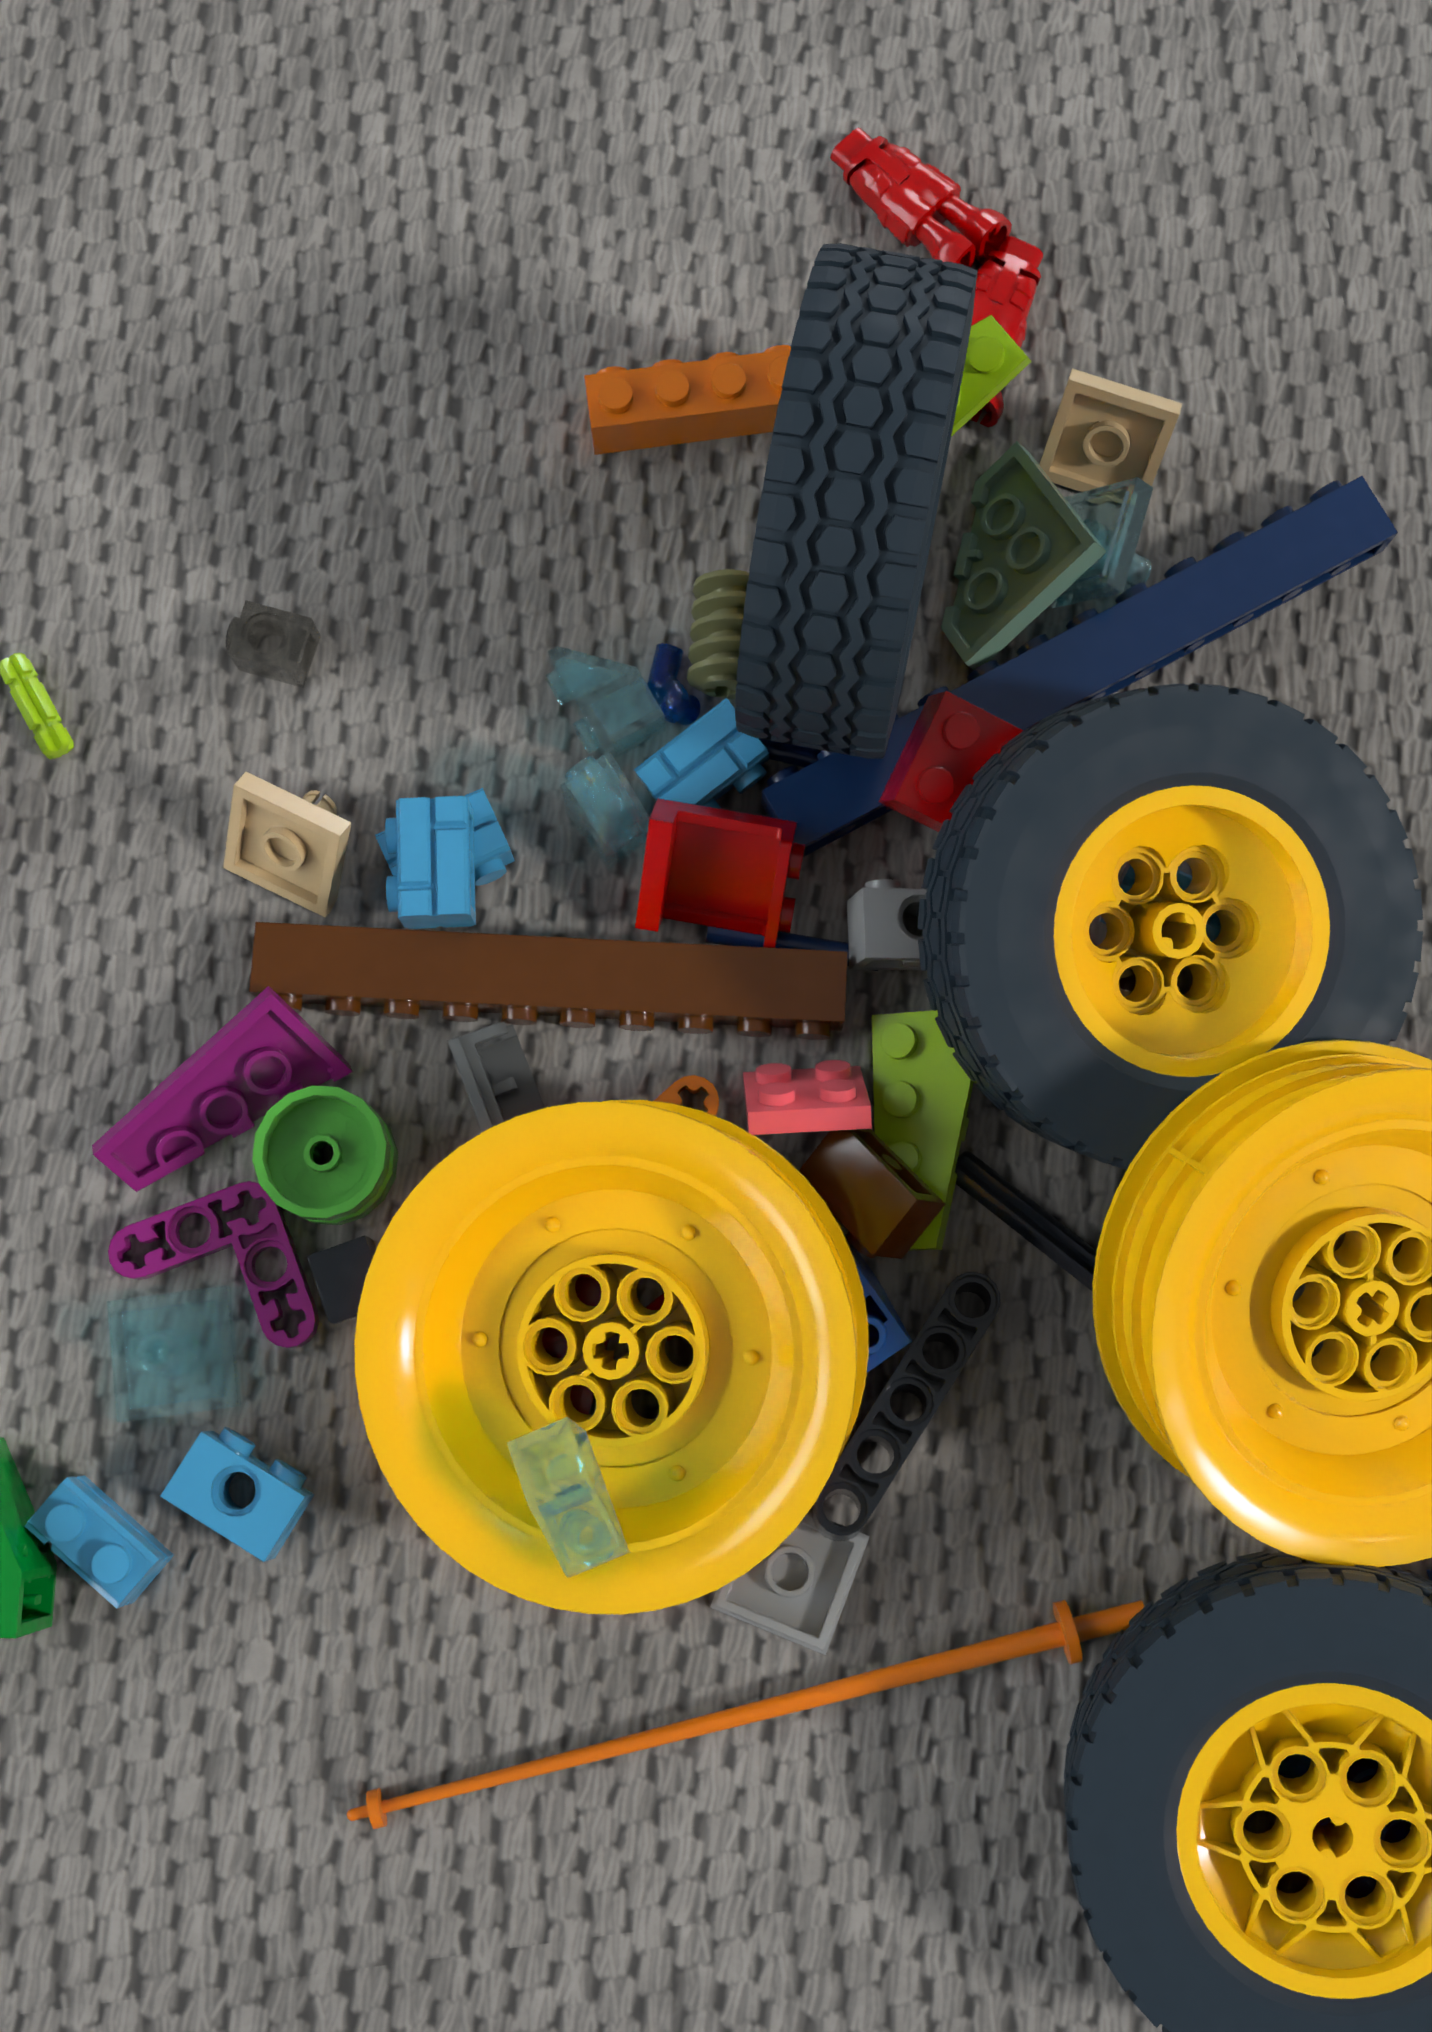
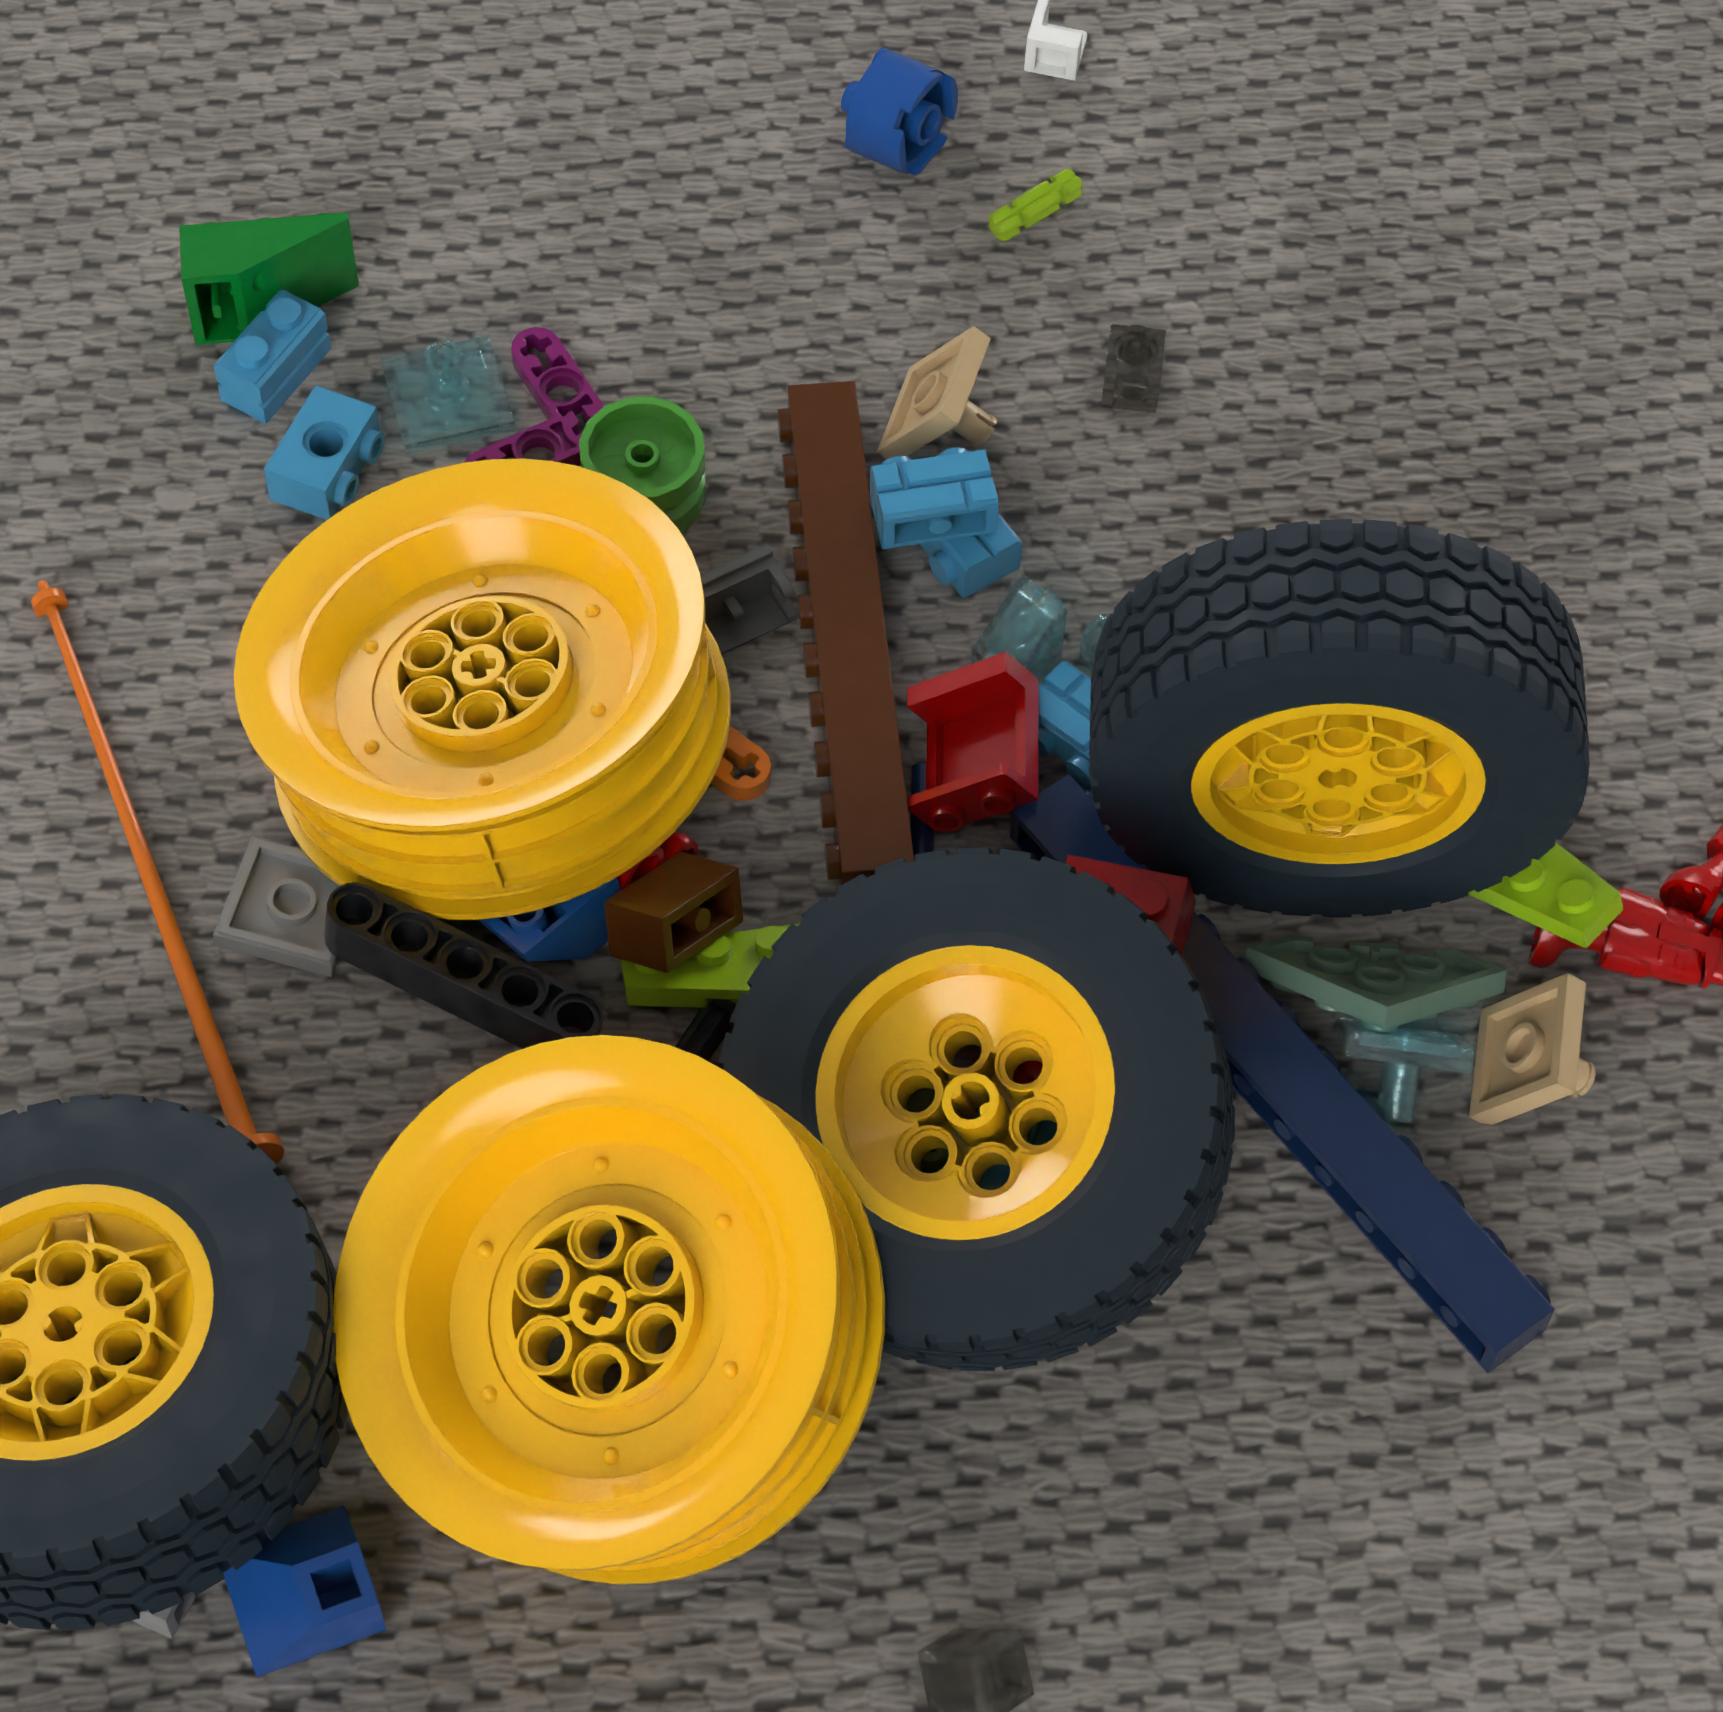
camera: 80 degrees right, 20 degrees down
(219, 1091) = (727, 400): magenta wing -> none
(568, 1495) = (341, 631): clear light blue slope -> none
(806, 1099) = (758, 847): coral plate -> none

